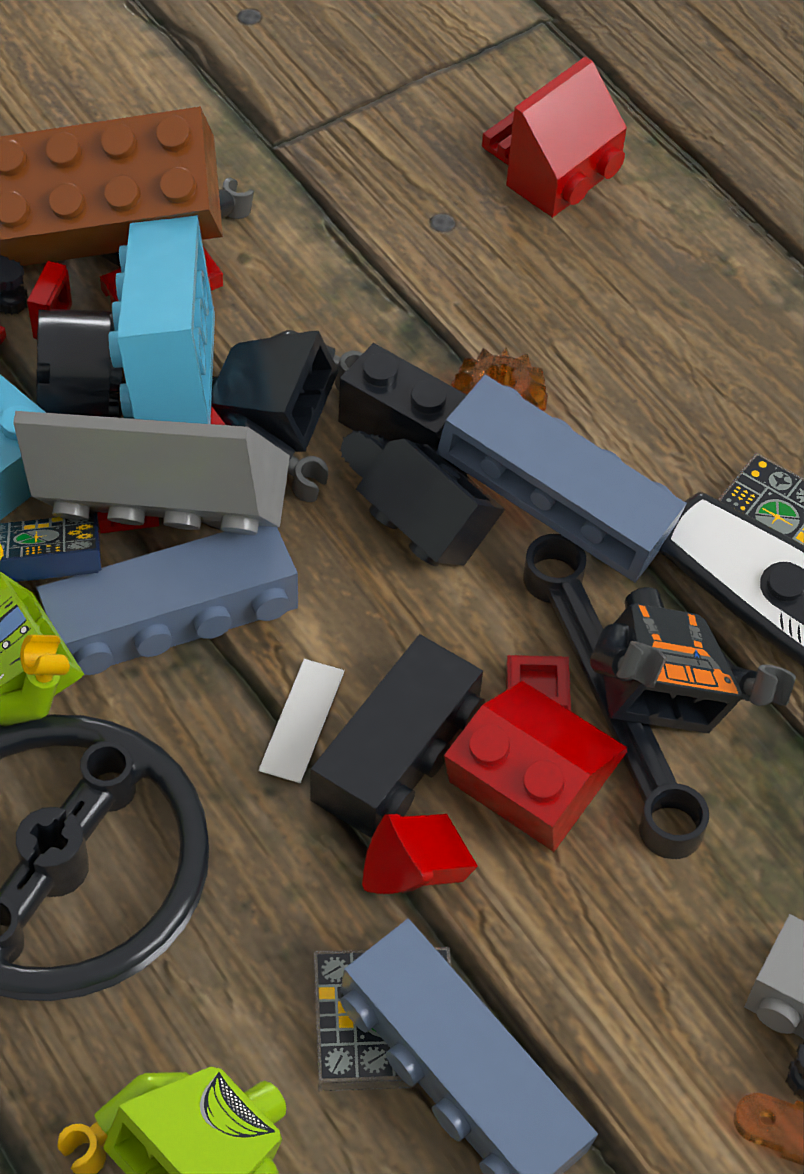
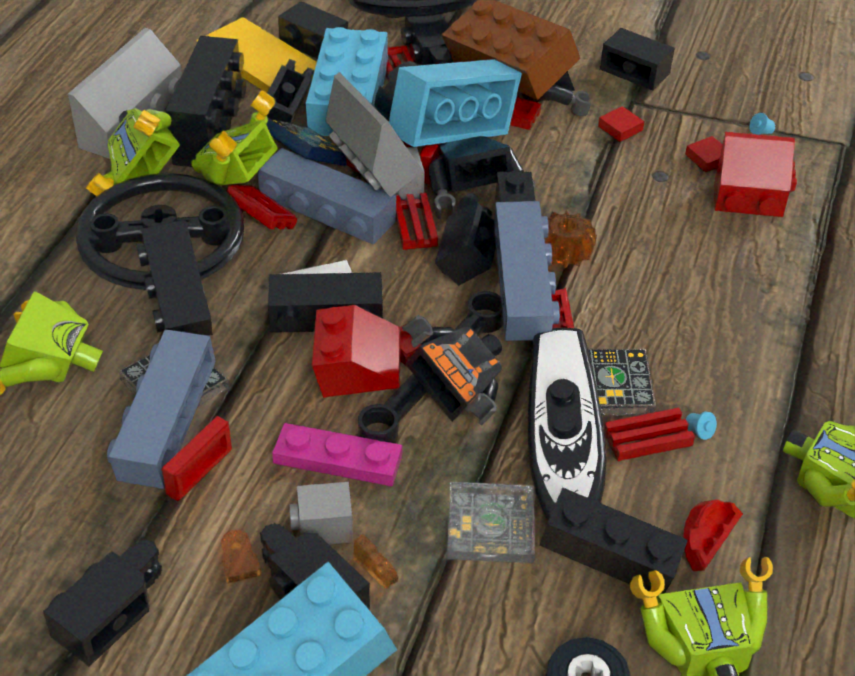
camera: 55 degrees right, 10 degrees down
(122, 692) = (262, 207): none -> red tile
(217, 74) = (636, 58): none -> black brick
(227, 898) = (174, 279): none -> black brick
(314, 188) = (621, 123): none -> red tile
(325, 526) = (412, 204): none -> red tile
(415, 854) = (269, 342): red tile -> none
(446, 64) = (761, 124): none -> medium azure piece
(454, 148) = (705, 153): none -> red tile
(588, 1073) = (197, 458): none -> red tile
(682, 899) = (338, 454): none -> dark pink plate

